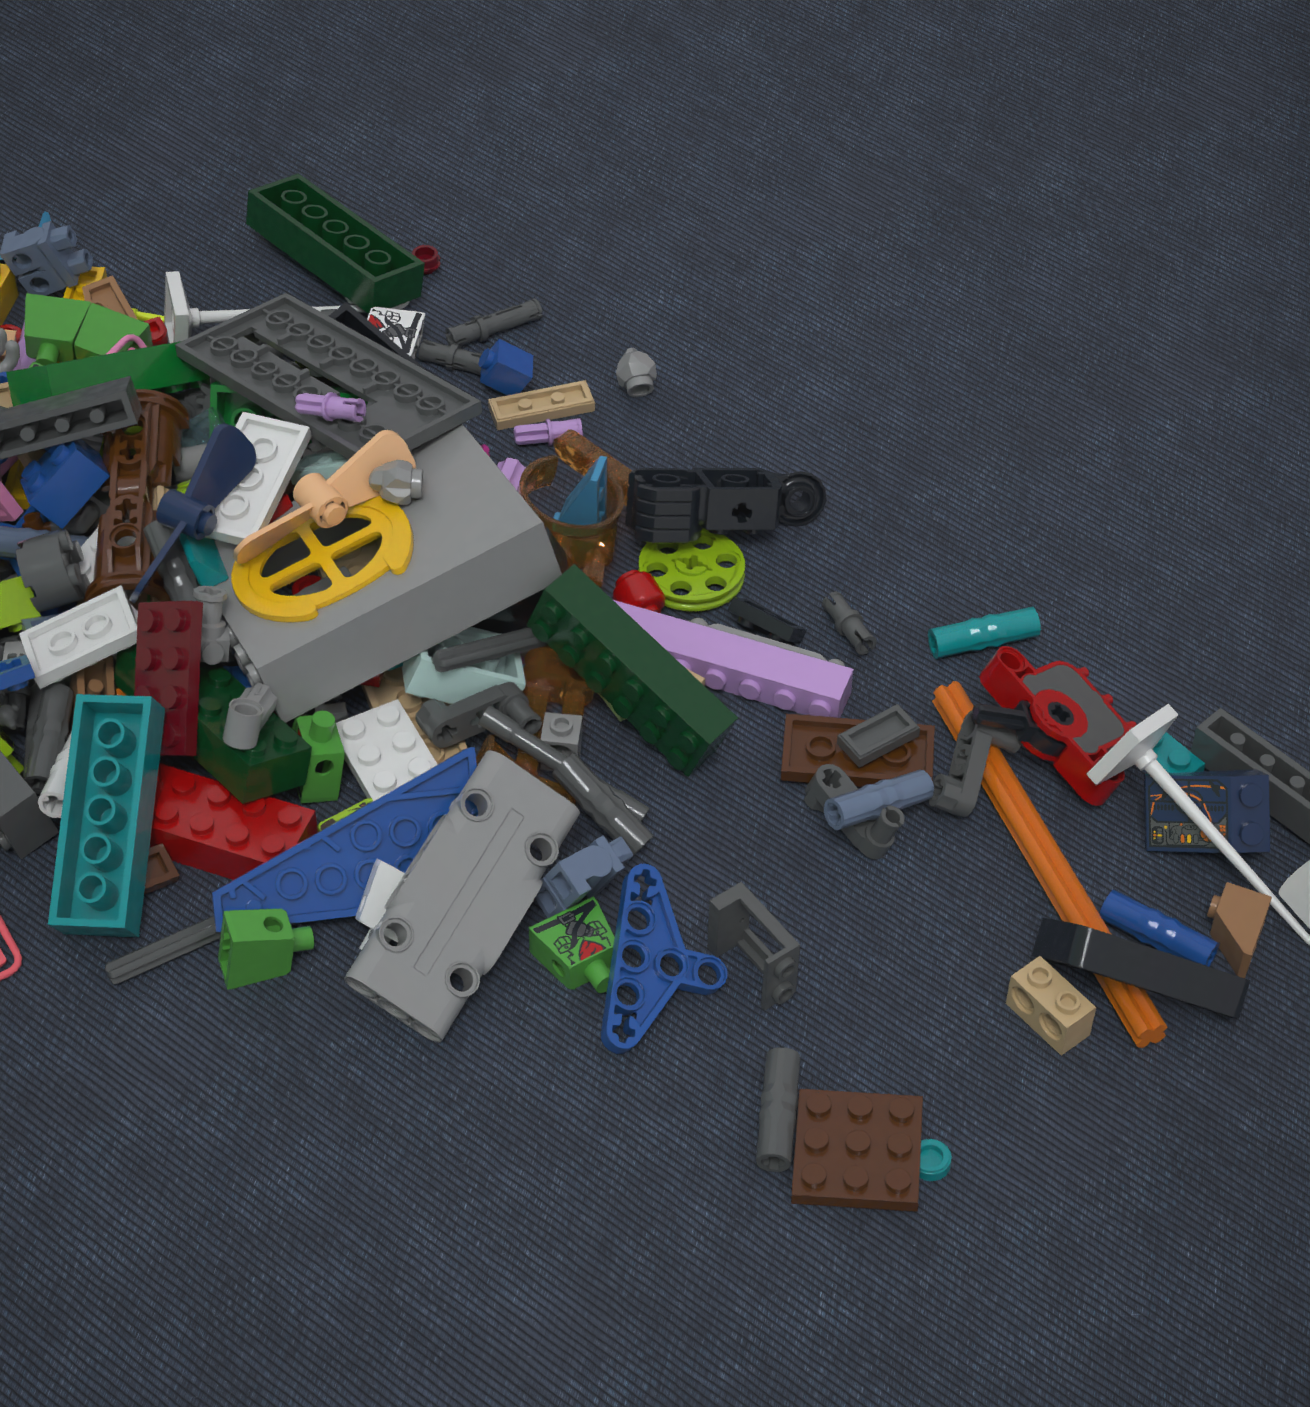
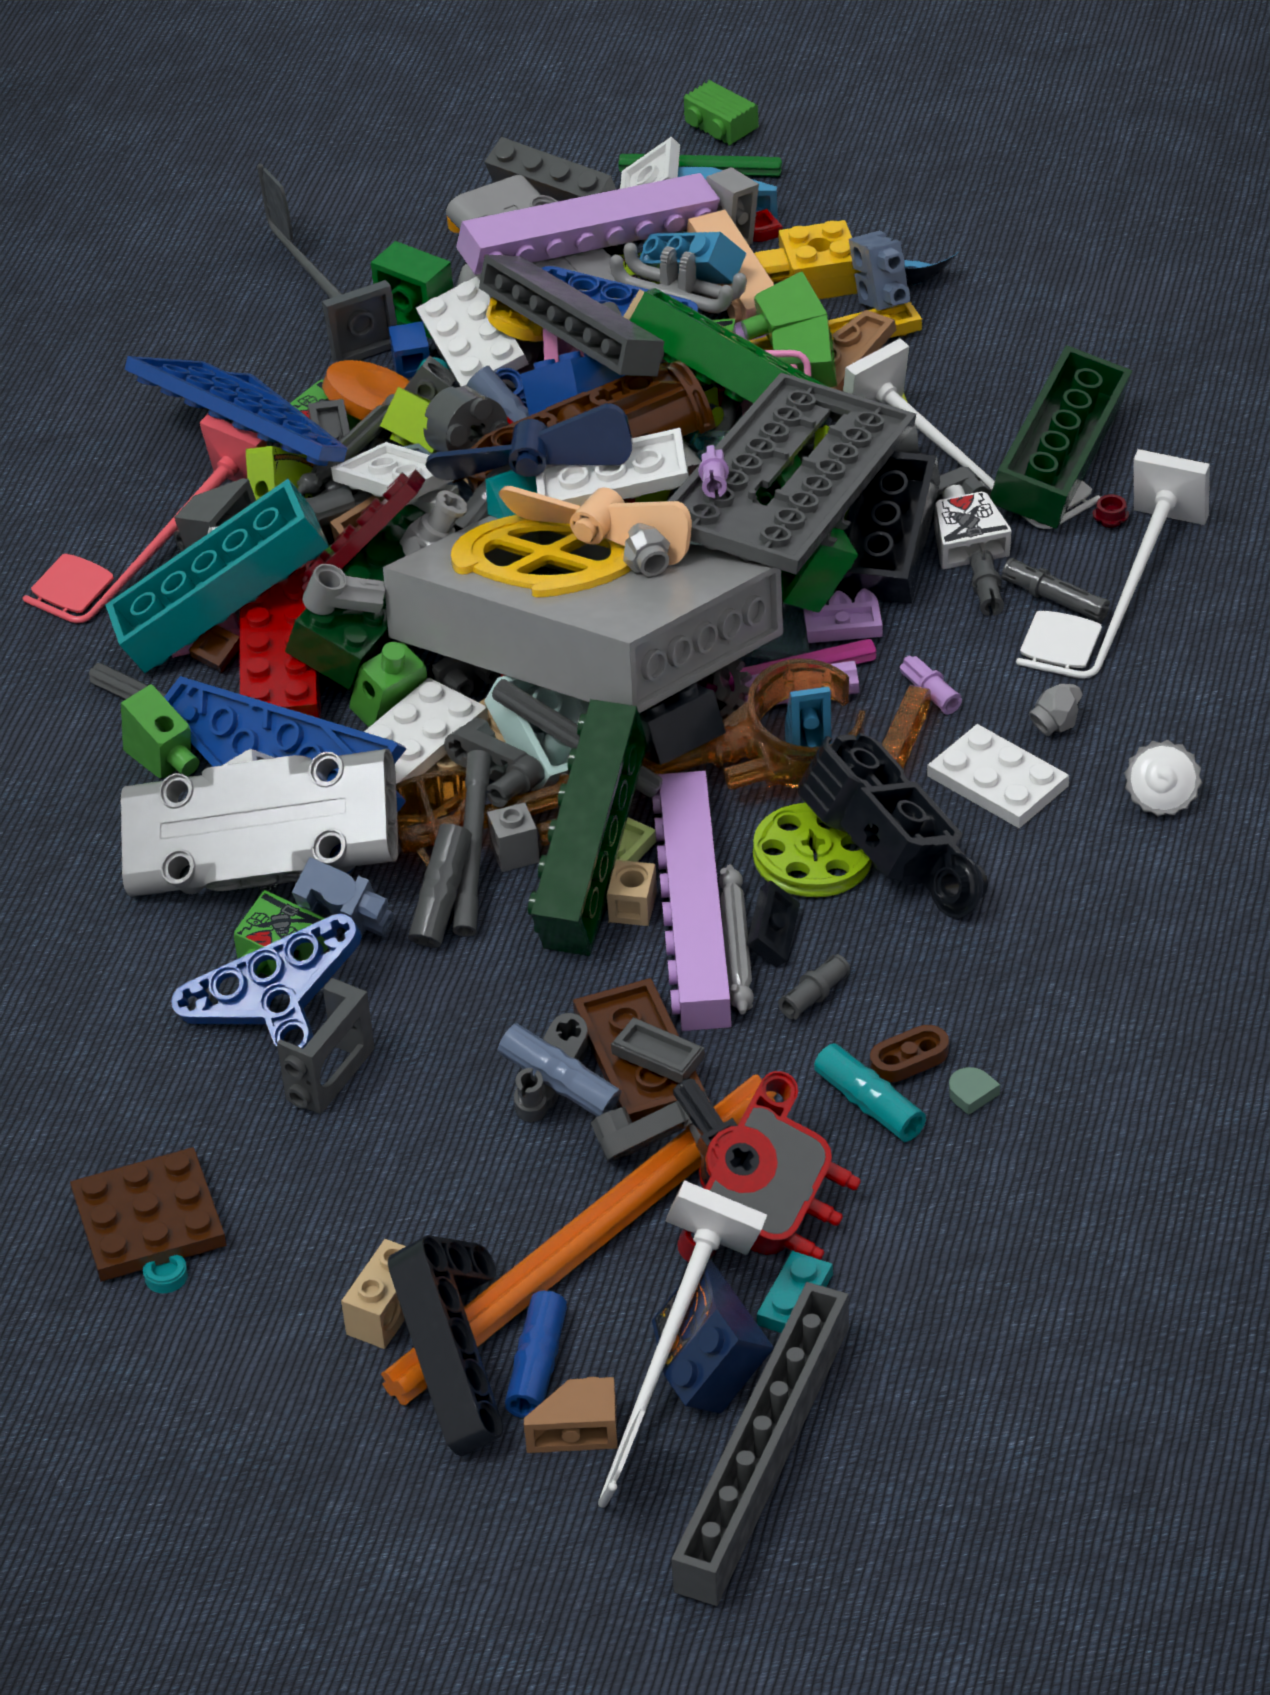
camera: 70 degrees right, 5 degrees down
(506, 368) = (983, 615): blue brick -> none
(541, 405) = (970, 667): tan tile -> none
(549, 340) = (1162, 488): none -> white piece
(639, 590) = (738, 821): red head -> none
(677, 435) = (998, 775): none -> white plate
(758, 345) = (1163, 778): none -> white piece
(778, 1109) = (161, 1138): dark grey axle -> none
(954, 594) = (906, 1055): none -> reddish brown plate
(1006, 578) = (972, 1088): none -> sand green tile

